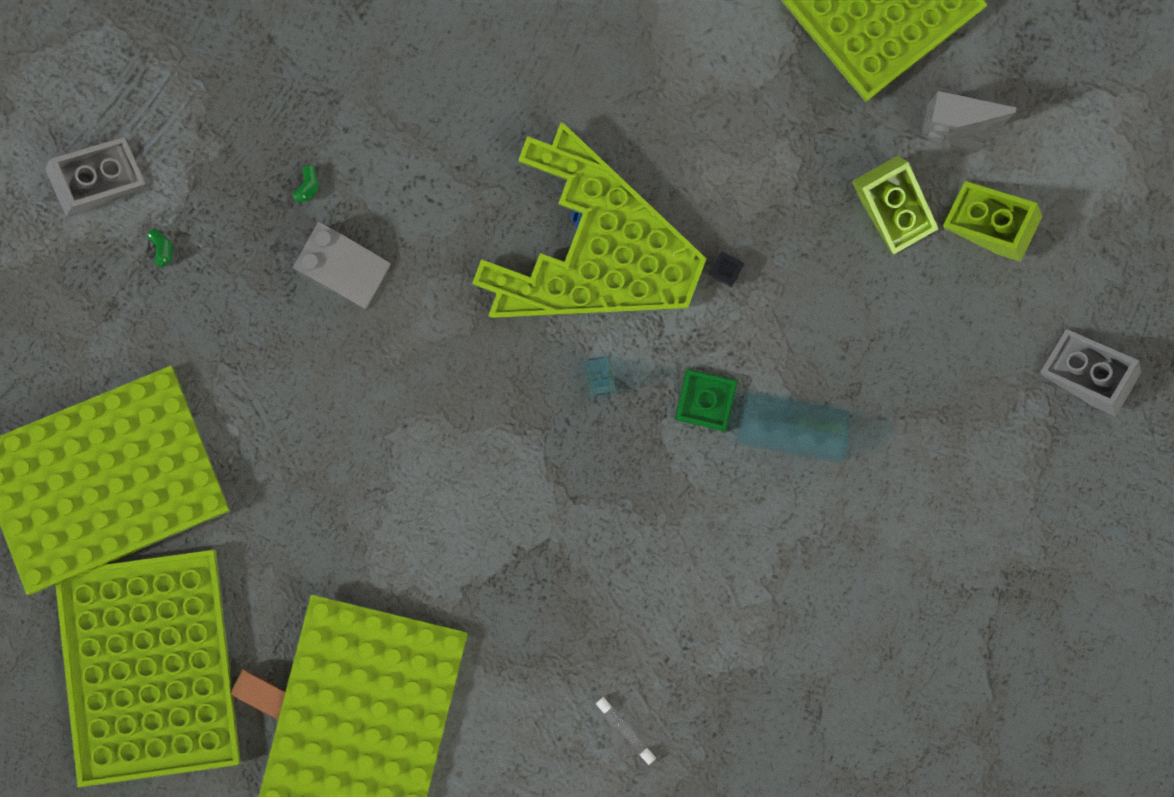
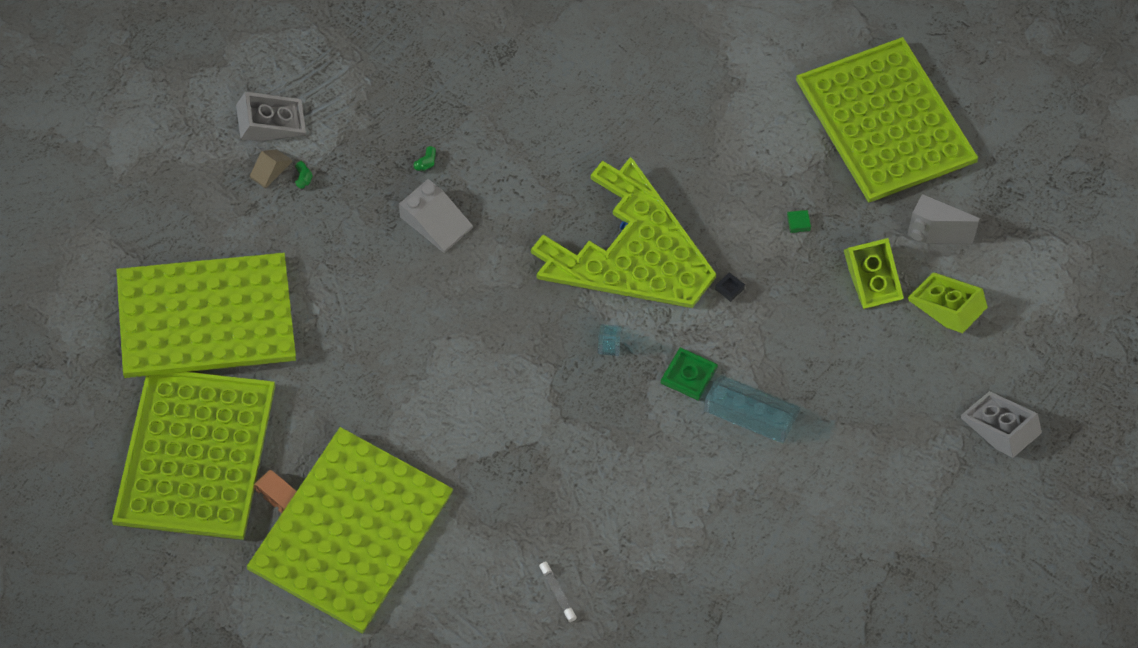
camera: 15 degrees right, 25 degrees down
(115, 245) = (269, 167): none -> dark tan slope
(787, 151) = (798, 221): none -> green tile

